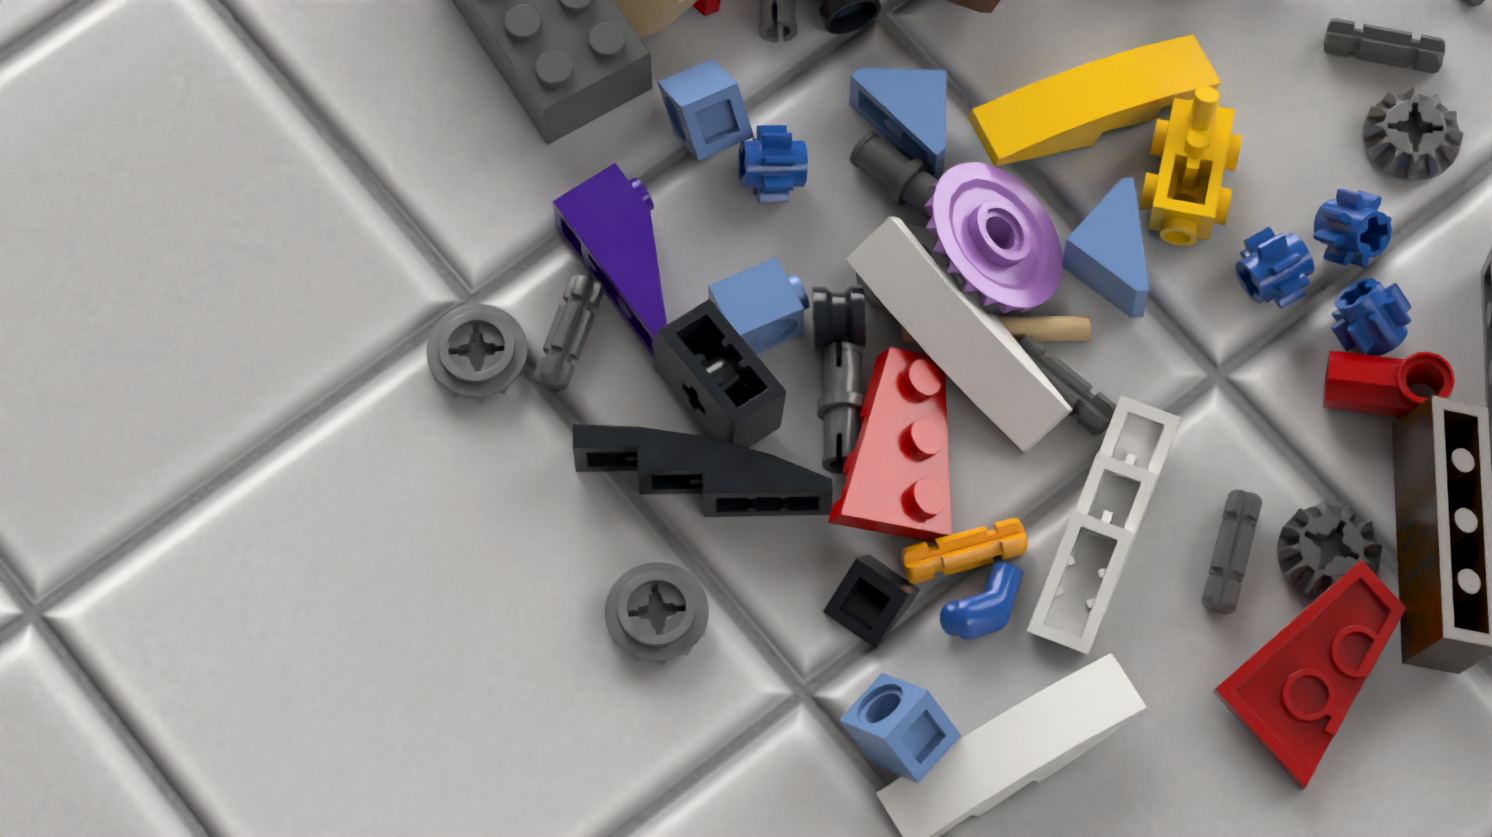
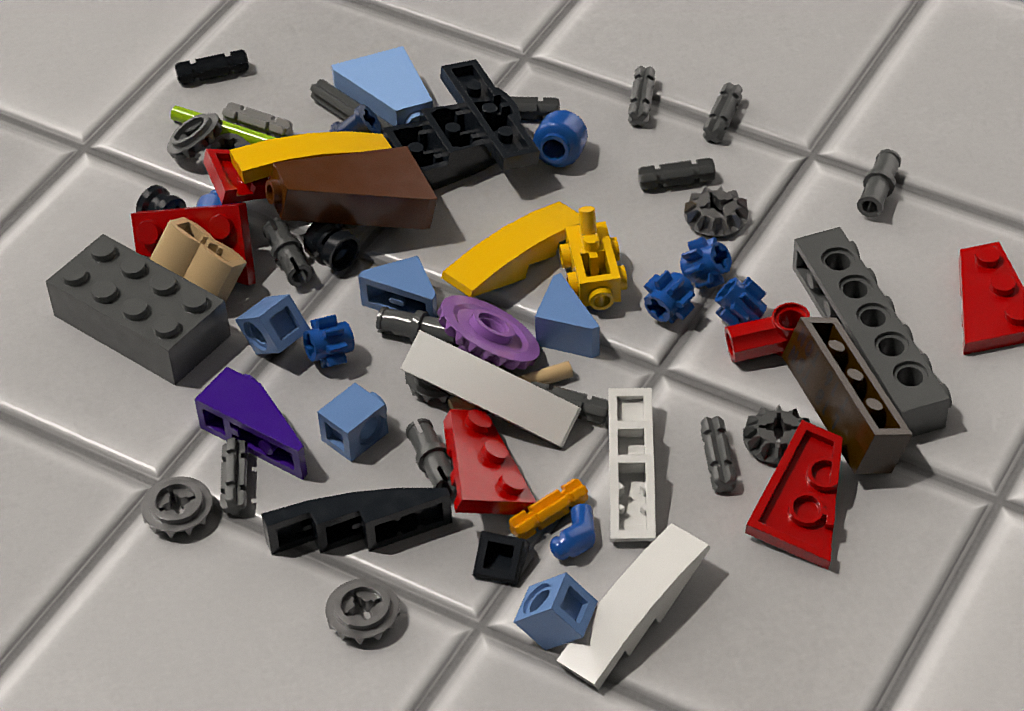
camera: 20 degrees left, 20 degrees down
(719, 377) = (345, 457): black brick -> none
(838, 316) = (407, 407): black wheel -> none

